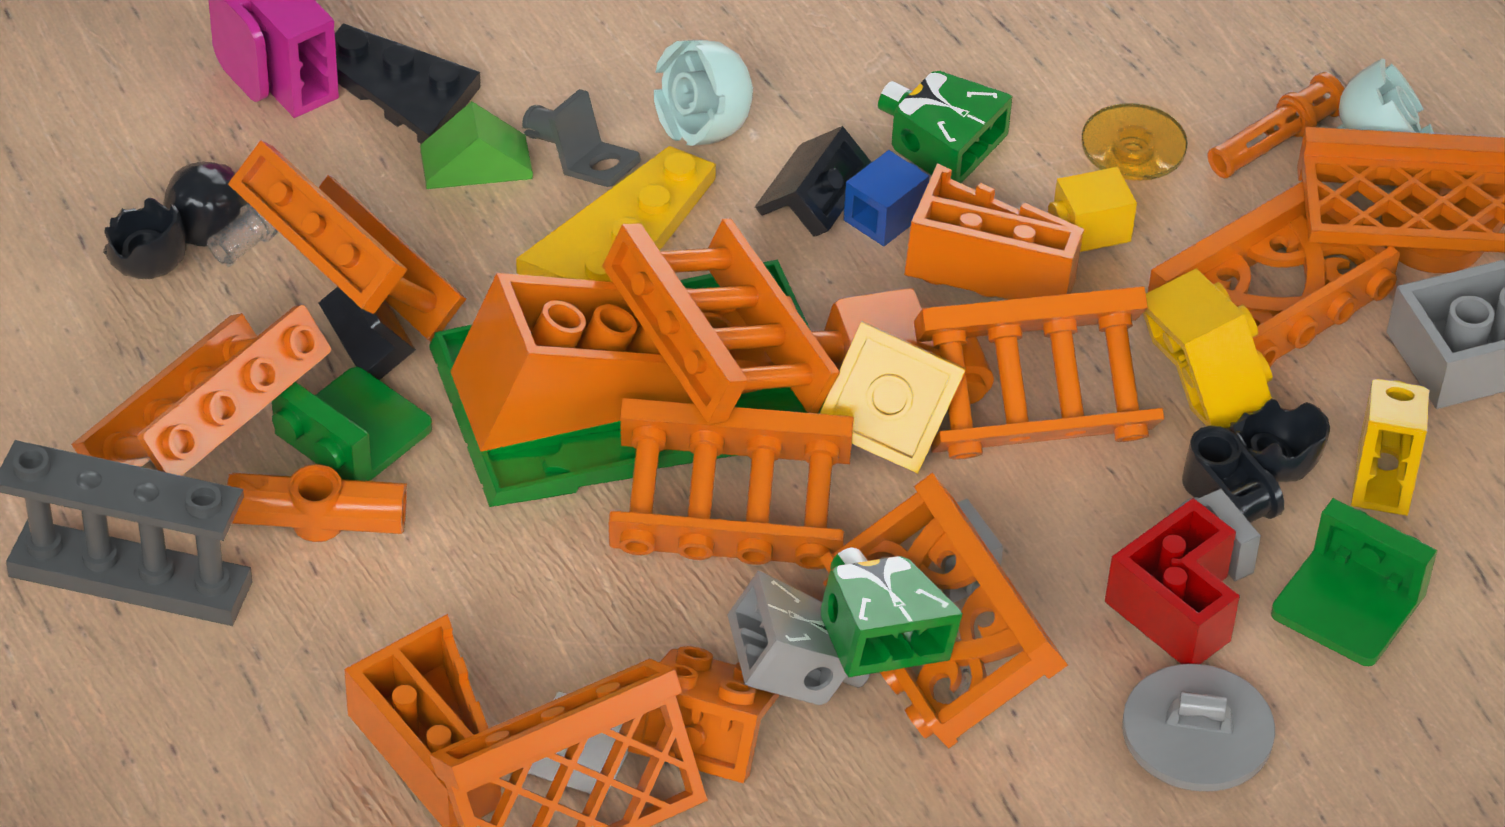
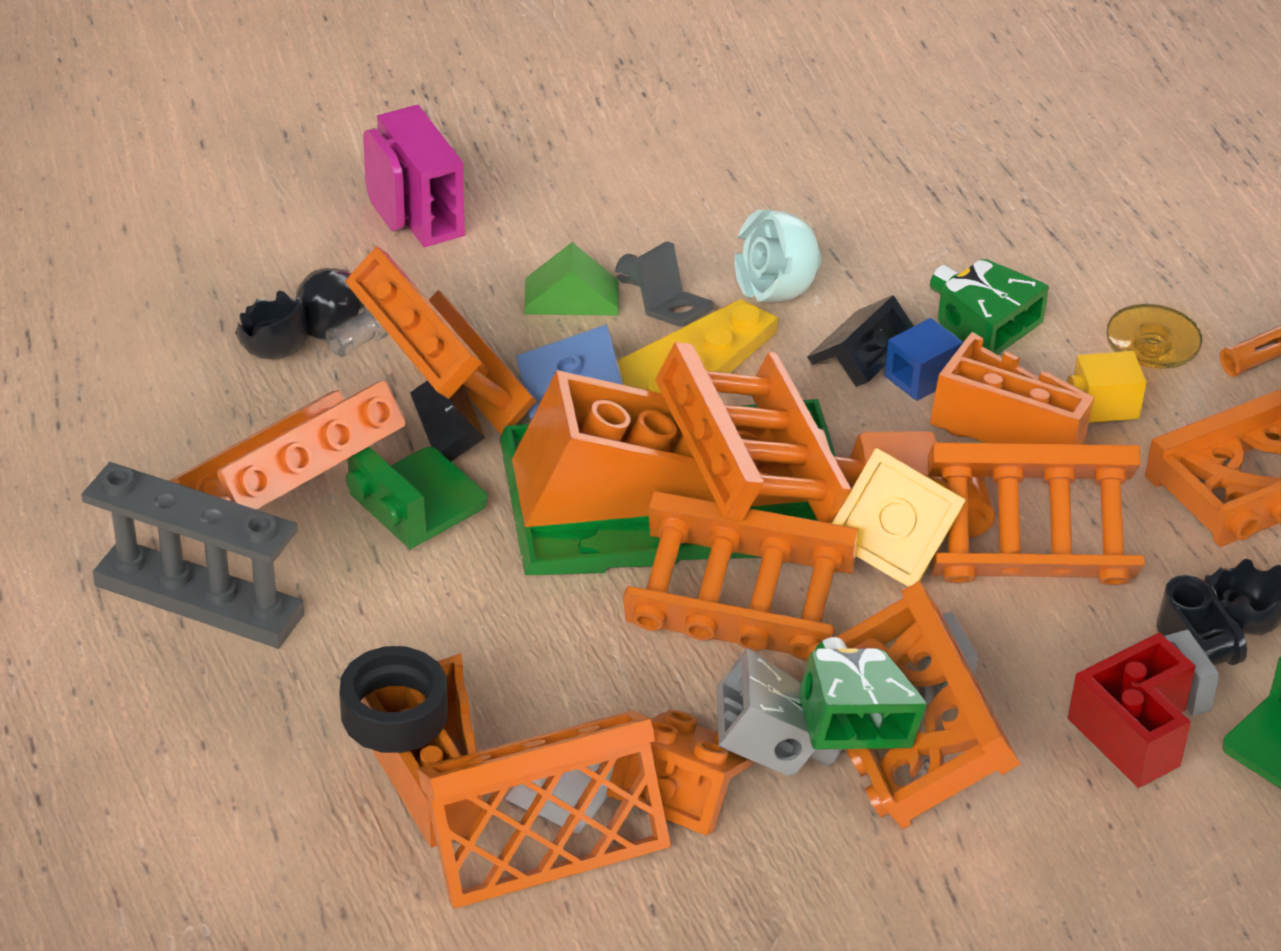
camera: 10 degrees right, 5 degrees down
(320, 503) = (371, 553): orange piece -> none
(383, 642) = (393, 730): none -> black tyre
(403, 81) = (519, 225): black wing -> none
(498, 244) = (583, 354): none -> medium blue plate
(1198, 727) = (1138, 838): light grey shield -> none
(1210, 347) = (1195, 507): yellow brick -> none

